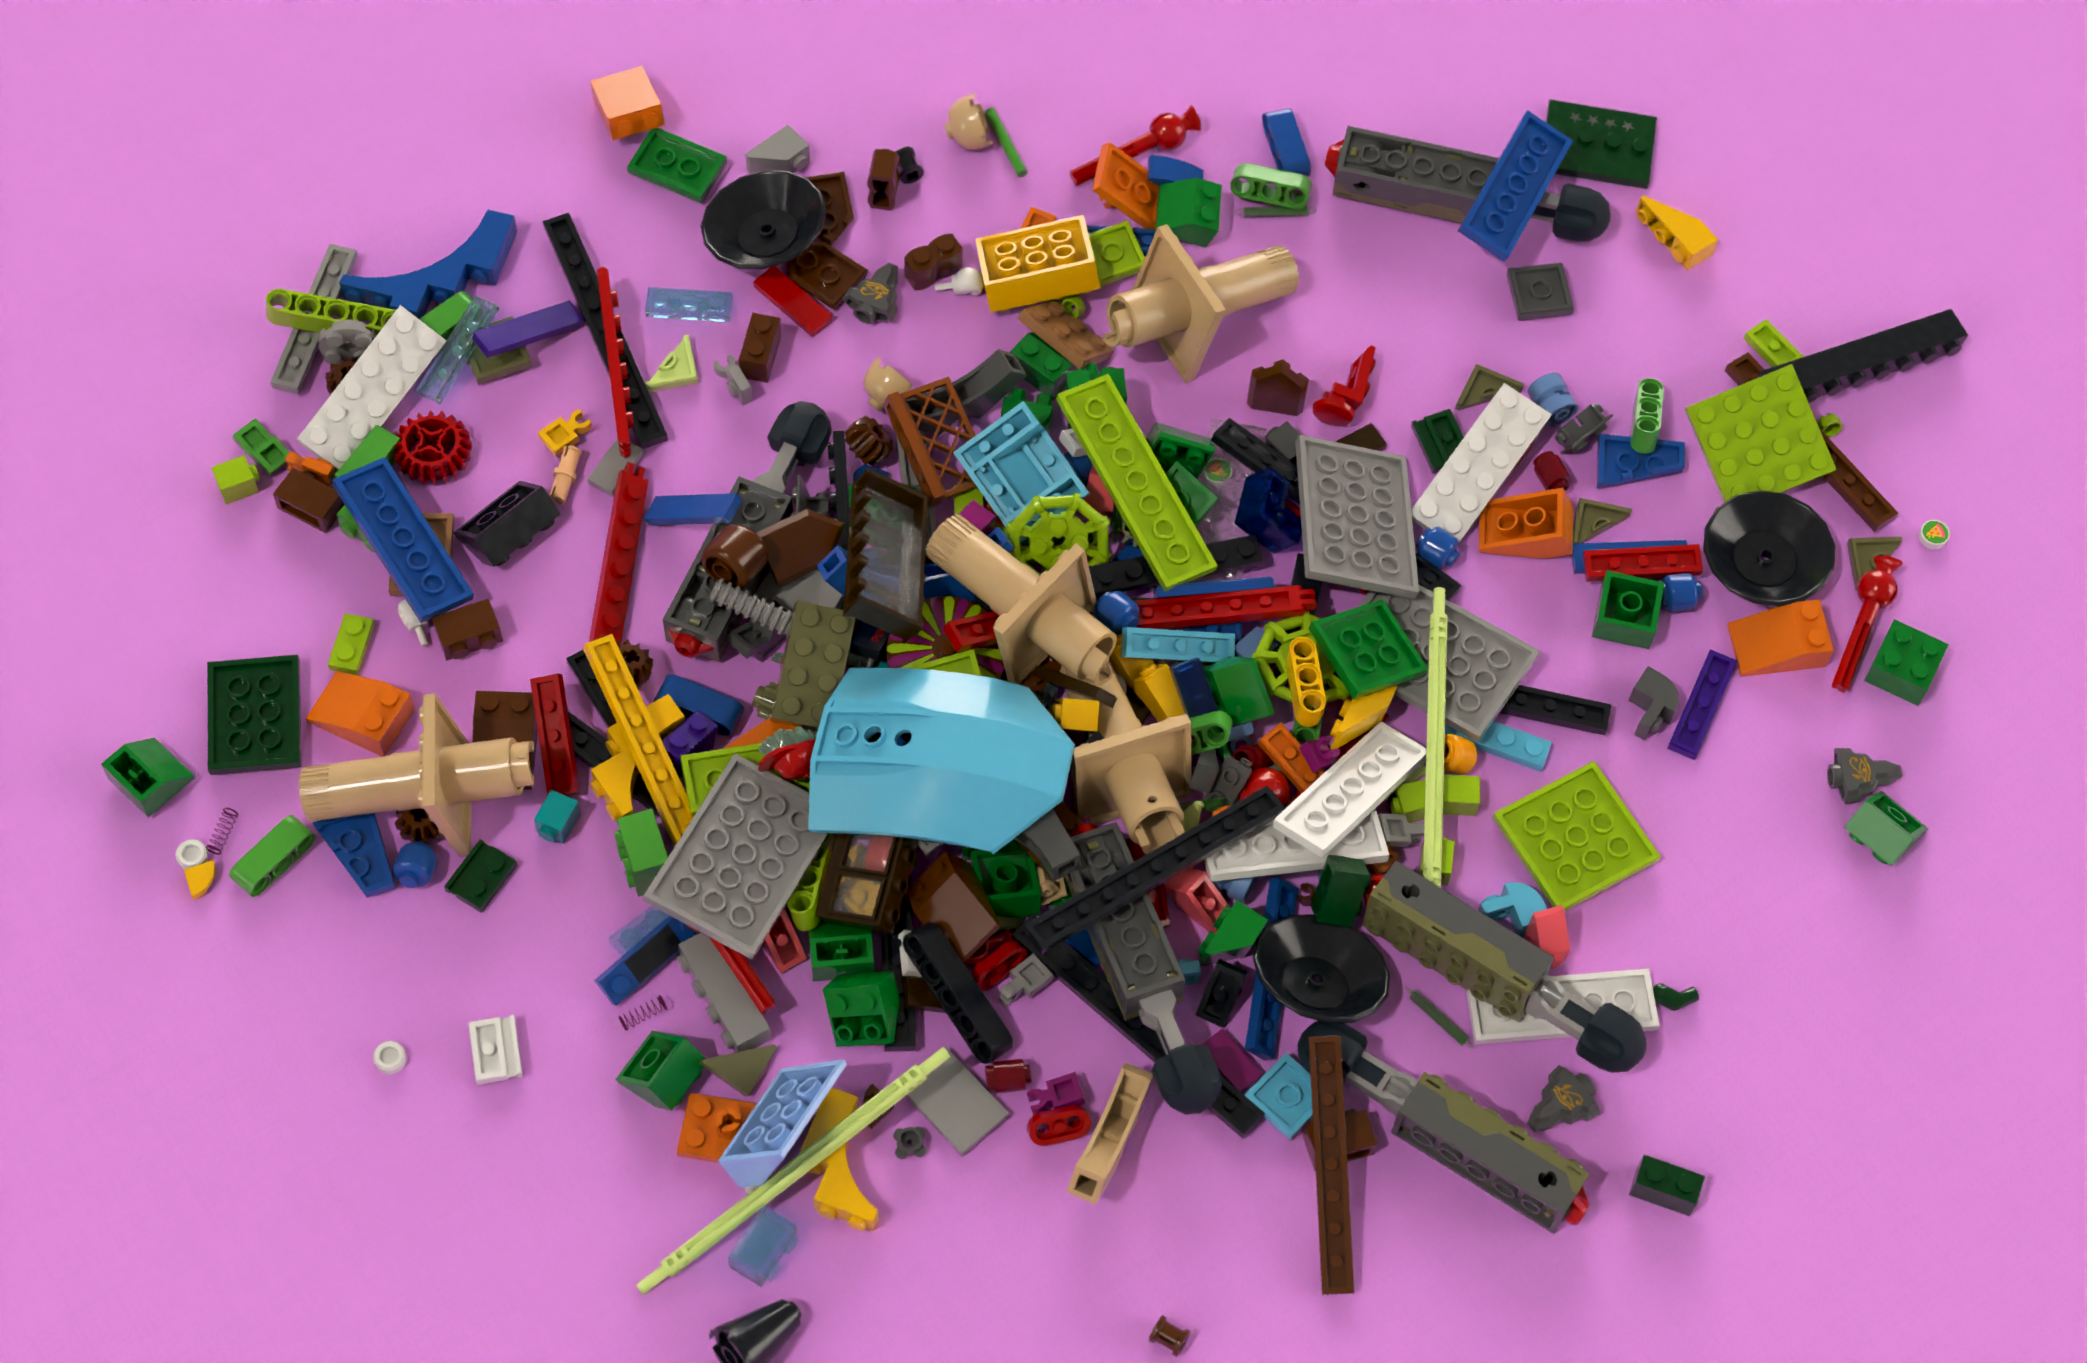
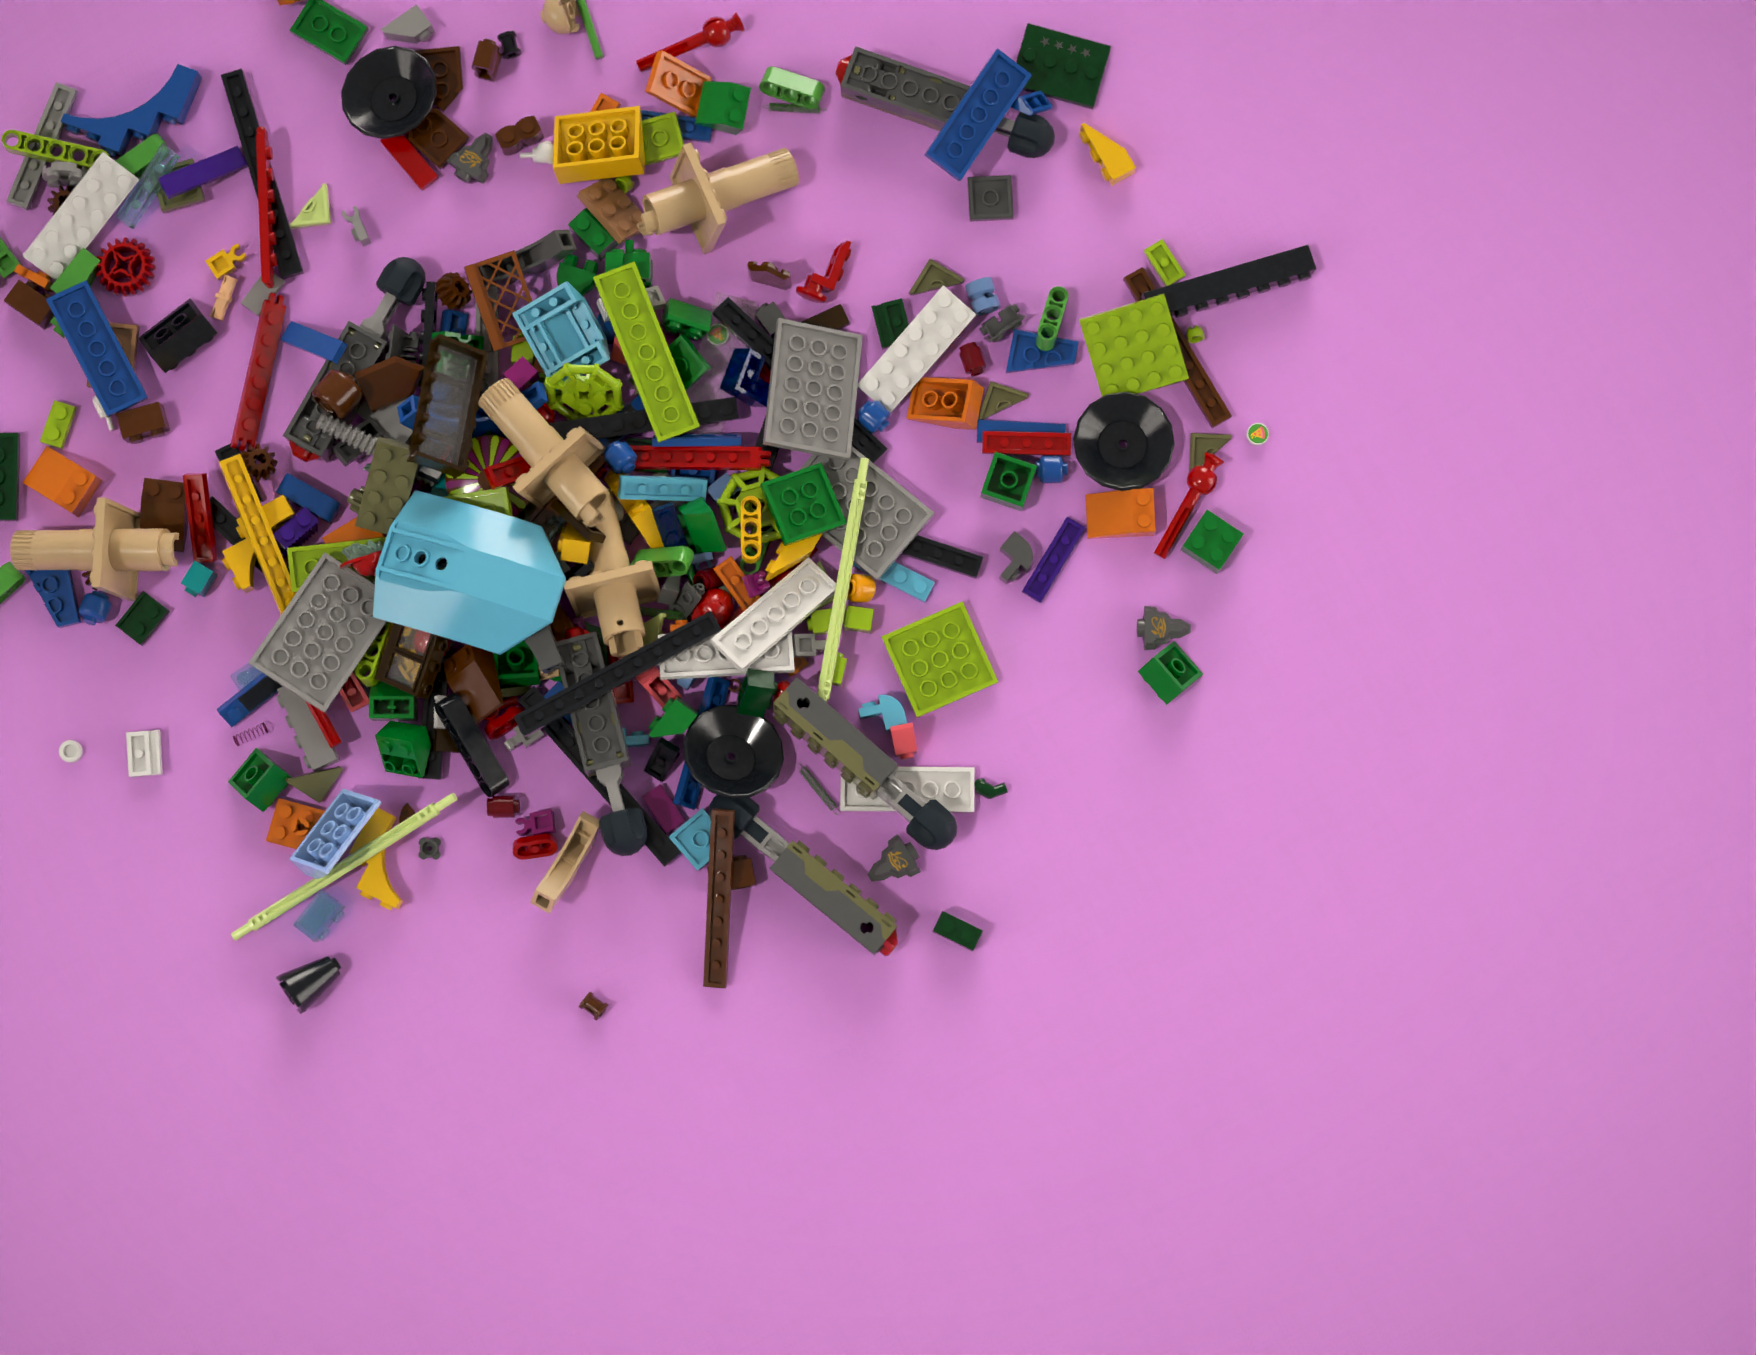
camera: 10 degrees right, 20 degrees up
(640, 849) = (256, 614): bright green brick -> none
(688, 304) = (329, 155): clear light blue plate -> none
(760, 347) = (379, 201): reddish brown brick -> none
(882, 382) = (473, 244): tan cylinder -> none
(957, 1105) = (466, 822): light grey tile -> none
(1168, 170) = (717, 70): blue slope -> none
(1286, 142) = (810, 48): blue beam -> none
(1575, 176) = (1032, 103): none -> blue slope

